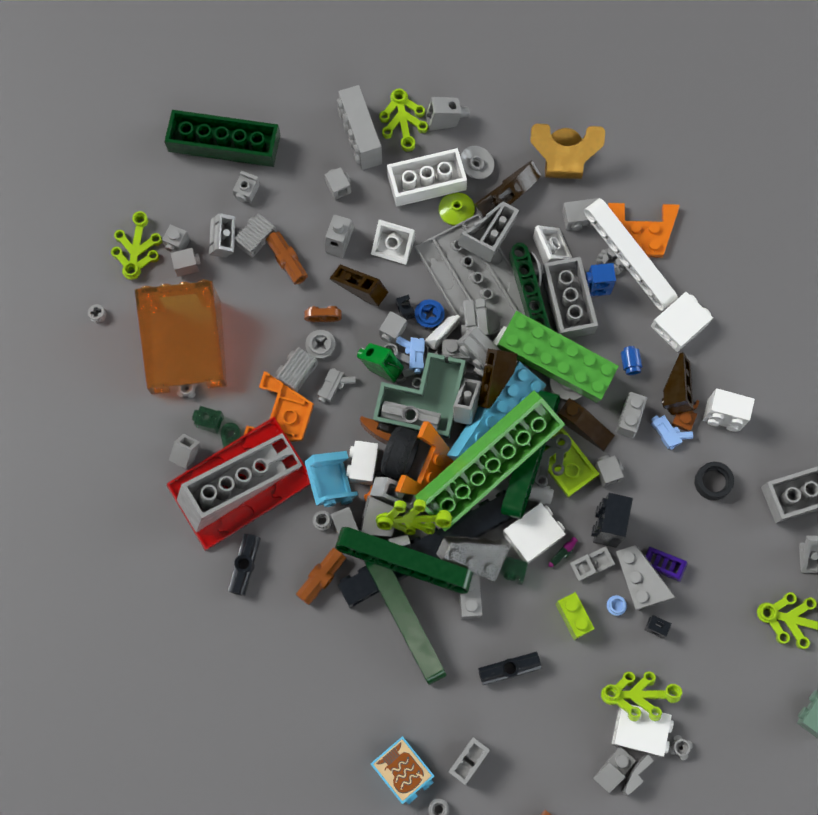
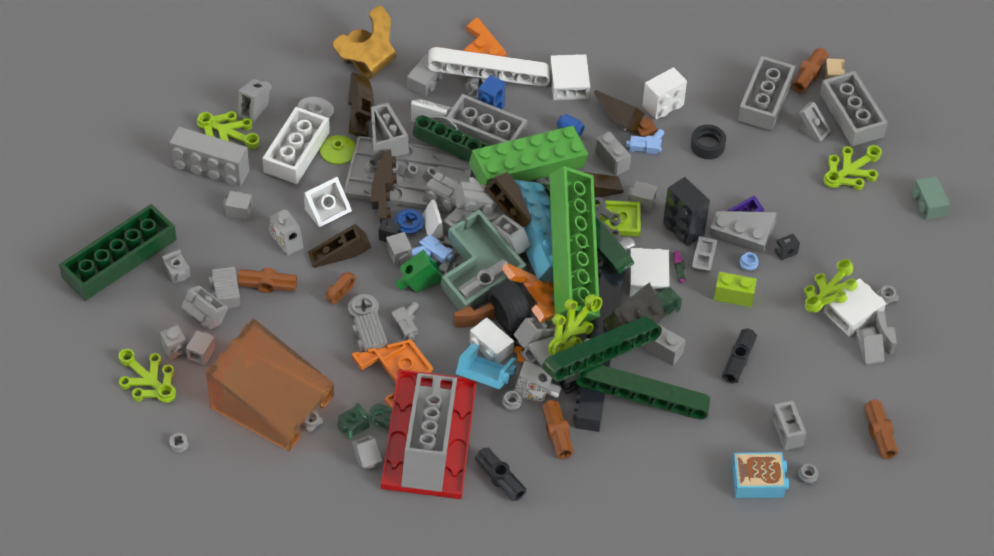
camera: 55 degrees left, 20 degrees down
(444, 264) = (383, 184): none -> dark brown slope

